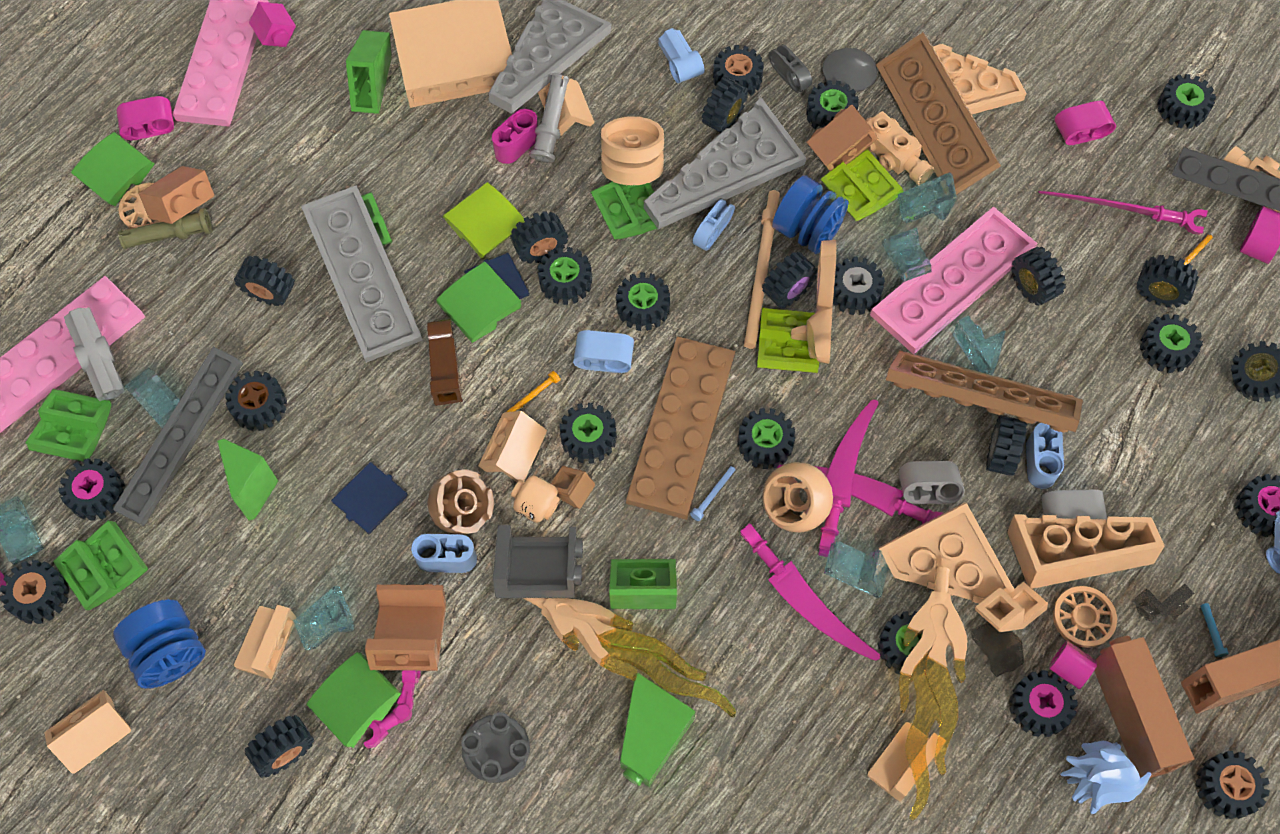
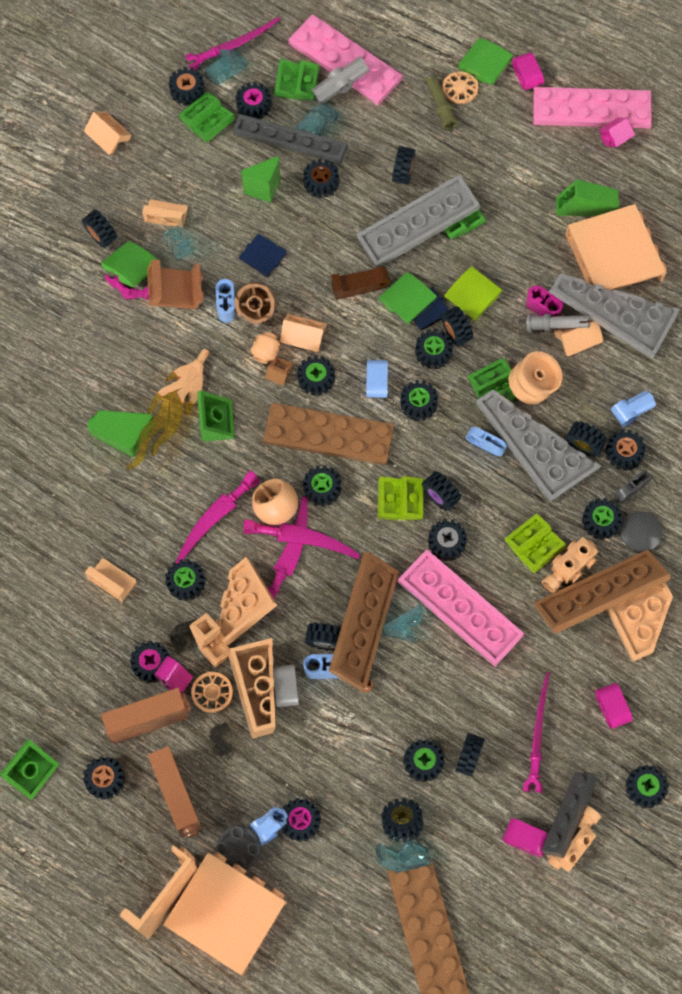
camera: 85 degrees right, 5 degrees up
(158, 643) = (155, 155): blue wheel -> none
(176, 194) = (463, 101): nougat brick -> none
(495, 748) = (107, 345): dark grey dish -> none
(536, 565) = (221, 352): dark grey panel -> none
(553, 378) = (356, 351): light orange piece -> none
(697, 514) = (266, 447): light blue piece -> none
(761, 269) = (498, 480): light nougat bar -> none
(810, 214) = (496, 501): blue wheel -> none
(818, 326) = (397, 509): light nougat animal -> none
(842, 138) = (567, 522): nougat brick -> none
(857, 569) = (231, 544): clear light blue slope -> none
(907, 254) = (475, 572): clear light blue slope -> none
(930, 197) = (523, 585): clear light blue slope -> none
(931, 482) = (296, 590): light grey beam -> none
(932, 682) = (165, 583): clear yellow piece -> none
(1038, 276) = (464, 661): black wheel -> none
(1104, 775) = (103, 693): light blue hair -> none
(1200, 246) = (489, 772): light orange piece -> none
(1219, 651) = (194, 780): dark azure piece -> none

